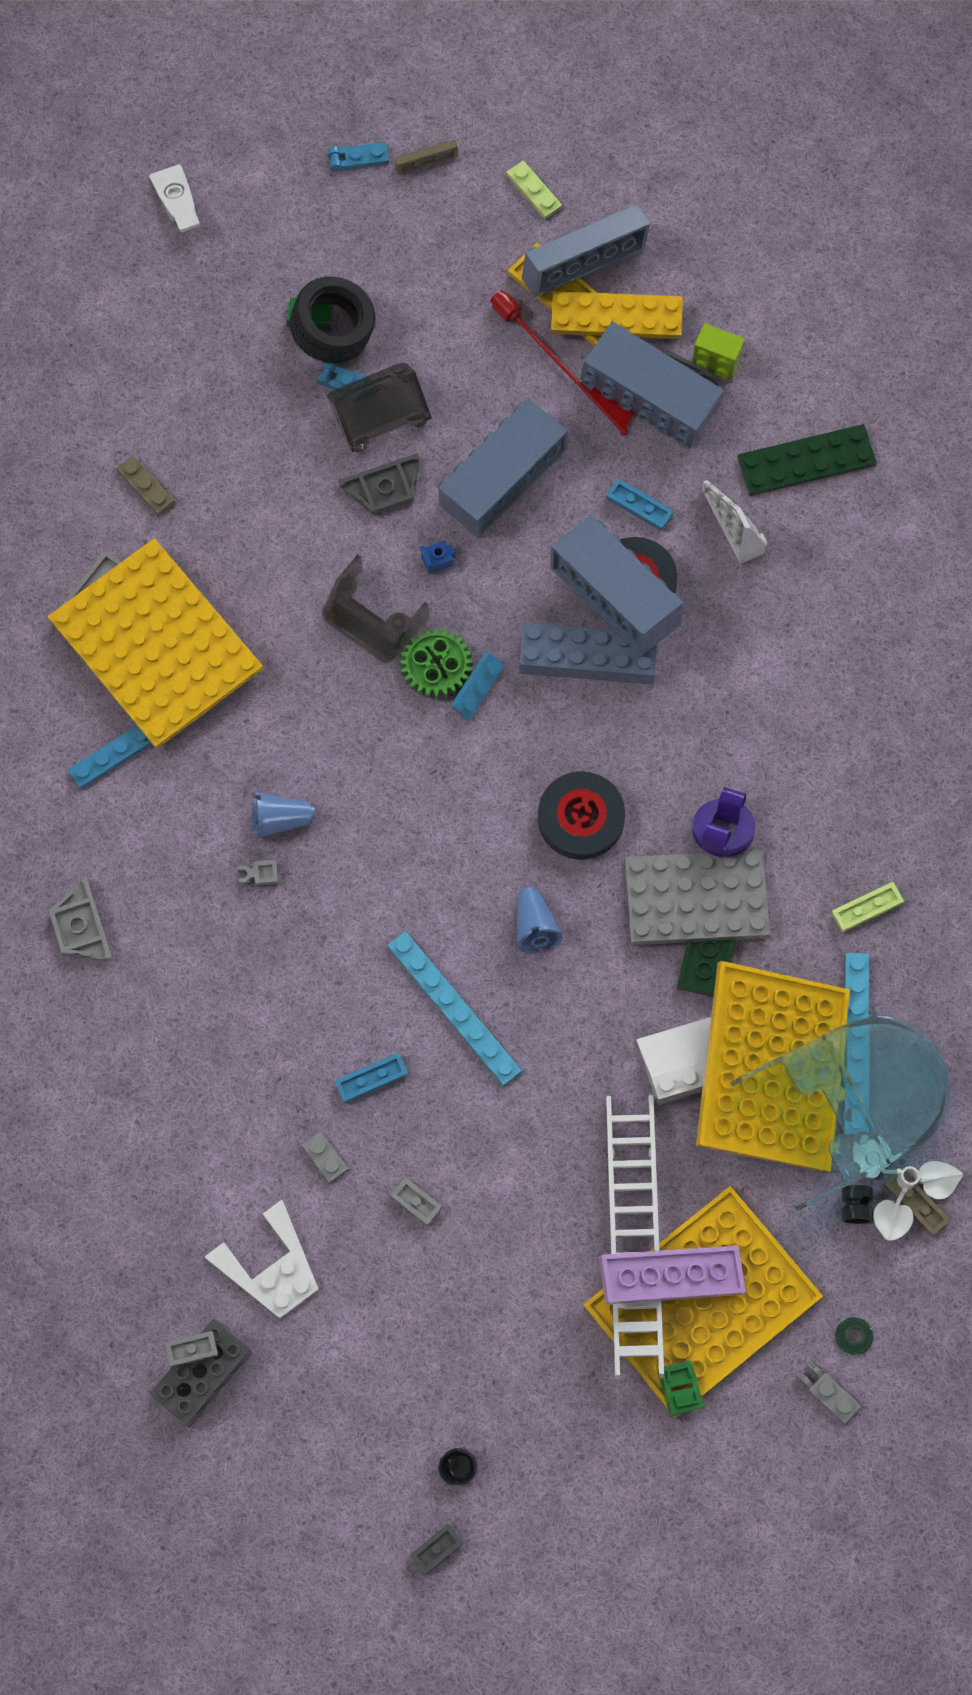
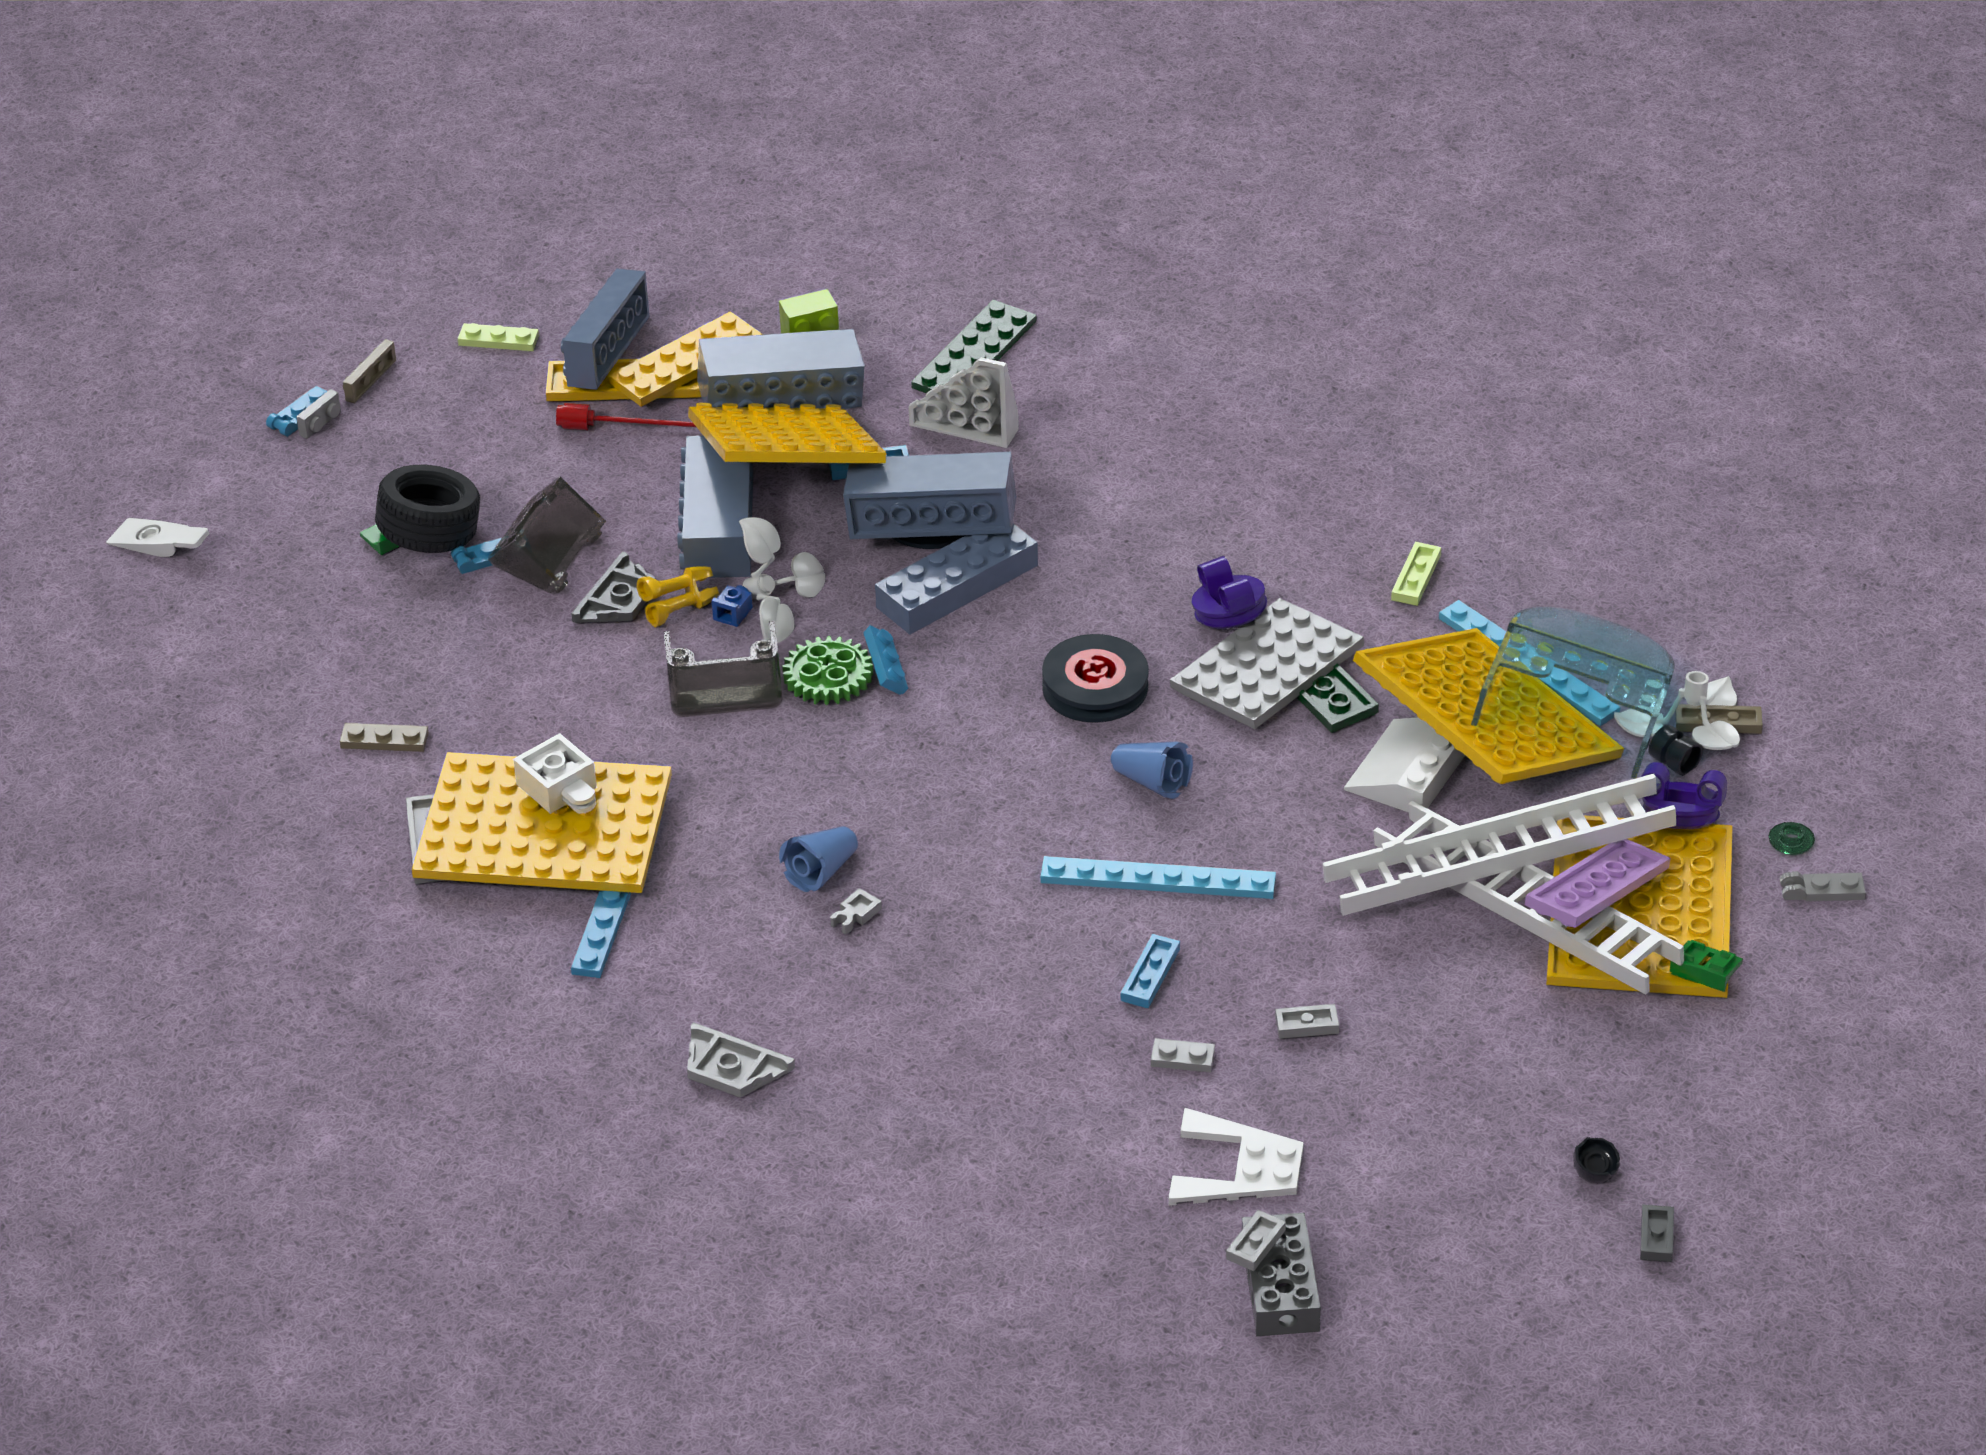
camera: 45 degrees left, 30 degrees down
(177, 625) = (557, 775): none -> white brick
(356, 171) = (318, 413): none -> light grey plate
(425, 530) = (658, 611): none -> yellow piece
(463, 543) = (761, 542): none -> white plant
(579, 455) = (785, 434): none -> yellow plate
(683, 1180) = (1503, 860): none -> white ladder
(804, 1228) = (1694, 803): none -> dark purple piece

